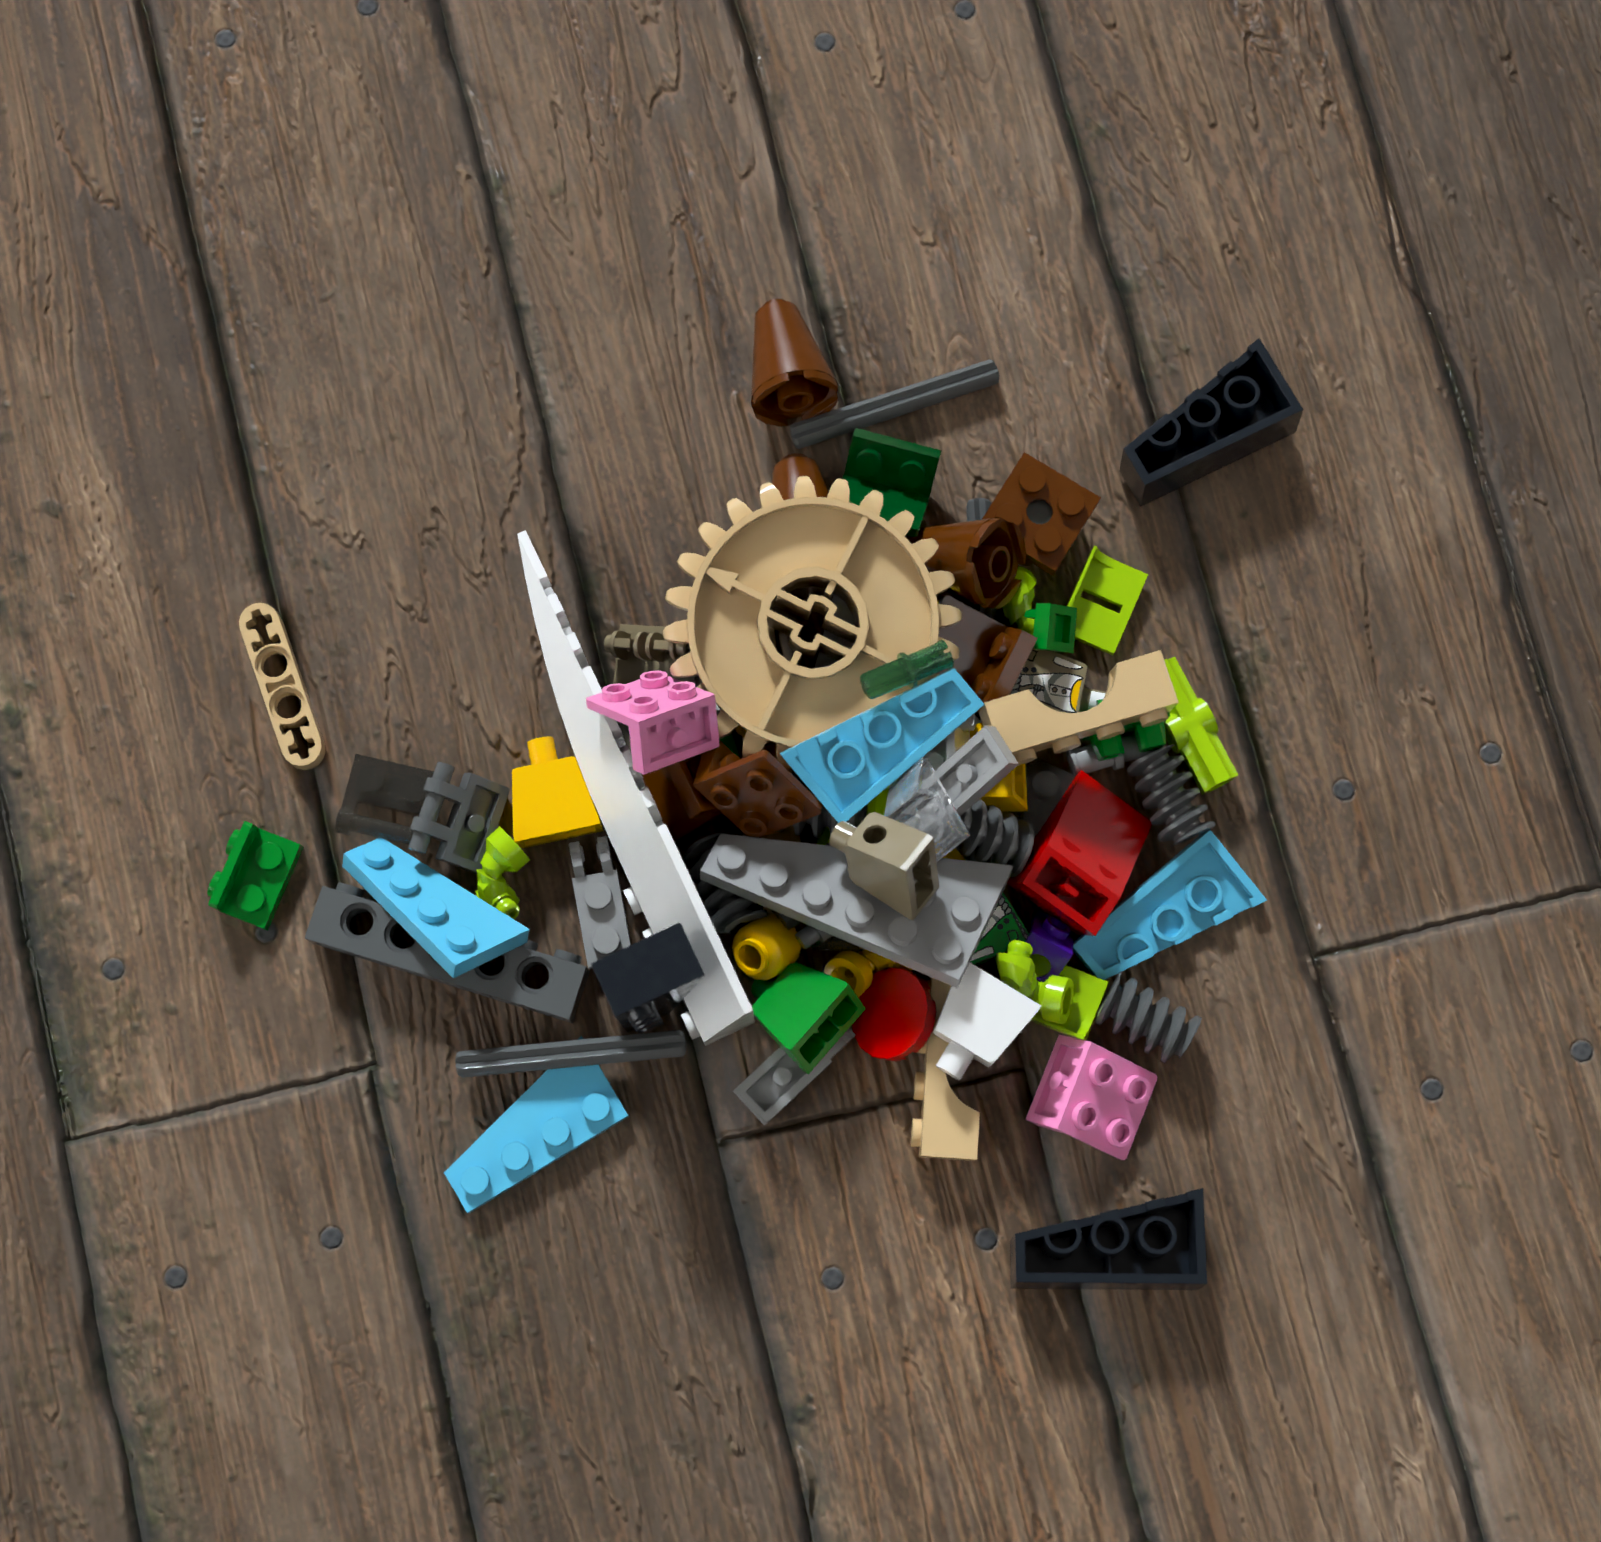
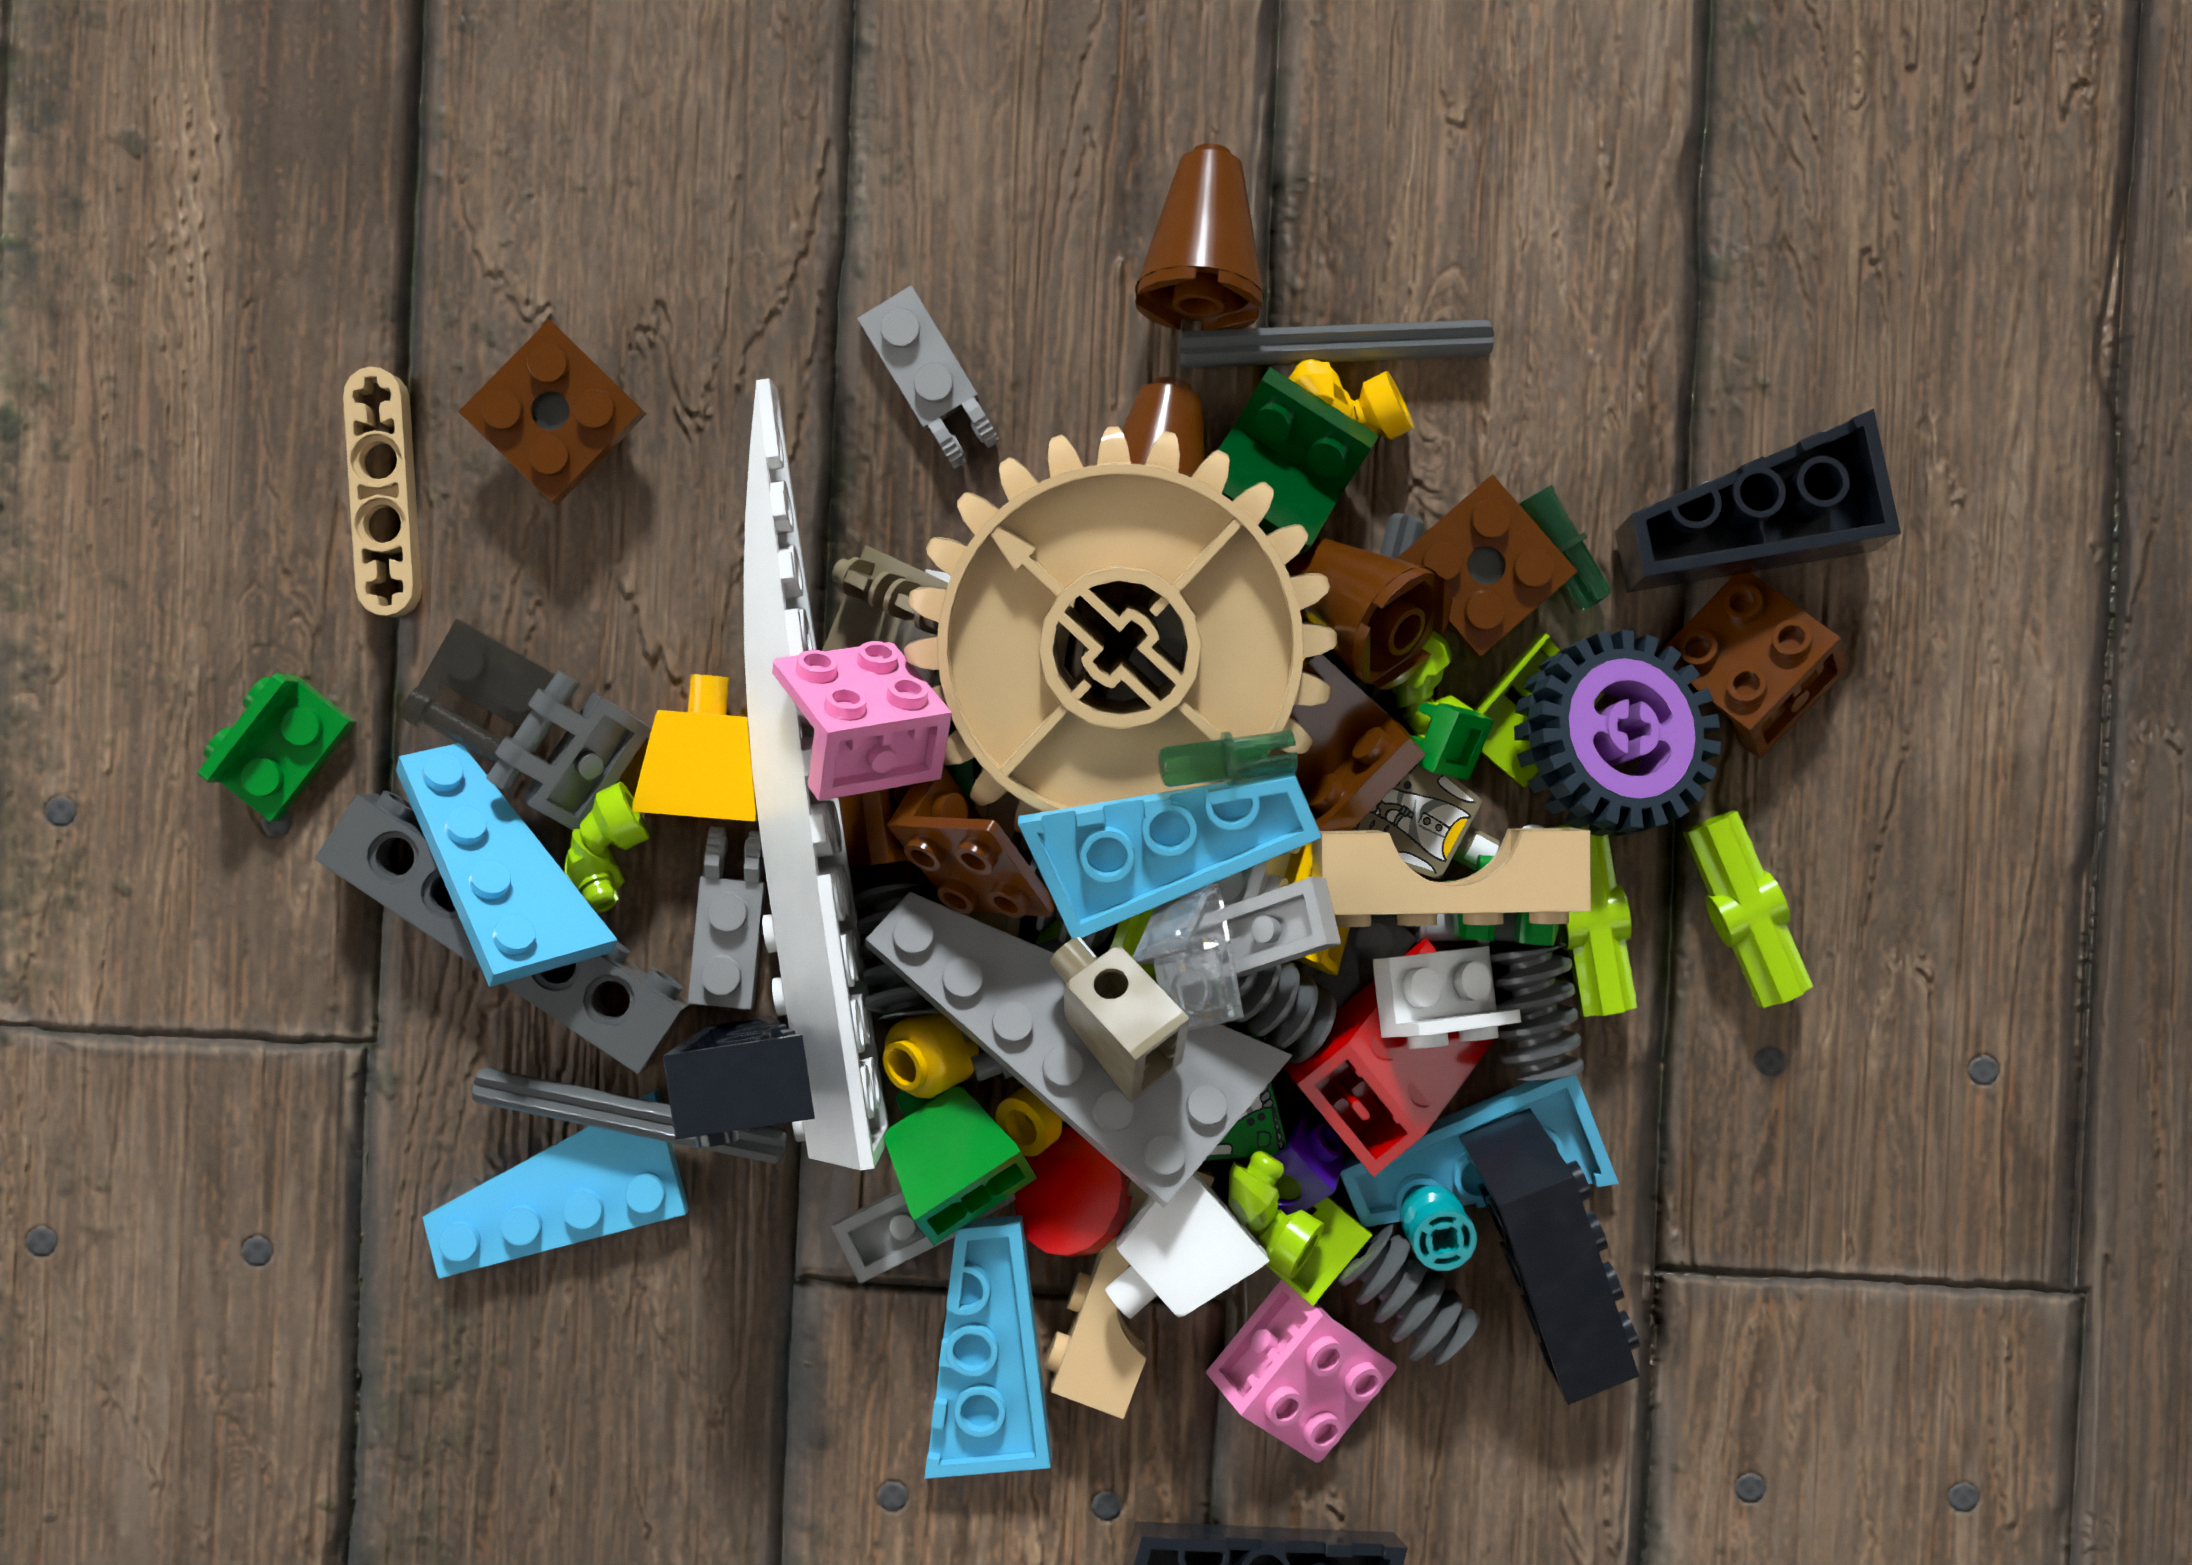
camera: 20 degrees right, 10 degrees up
(386, 595) = (552, 412): none -> reddish brown piece
(627, 500) = (925, 370): none -> light grey hinge
(872, 1156) = (990, 1373): none -> medium azure wing
(934, 432) = (1379, 404): none -> yellow arm
(1100, 801) = (1437, 995): none -> white bracket
(1110, 507) = (1588, 584): none -> clear green axle
(1141, 958) = (1435, 1213): none -> teal wheel
(1179, 580) = (1652, 721): none -> wheel
(1239, 957) = (1554, 1255): none -> black wedge
(1242, 524) = (1759, 659): none -> reddish brown bracket
(1291, 688) = (1748, 909): none -> lime piece

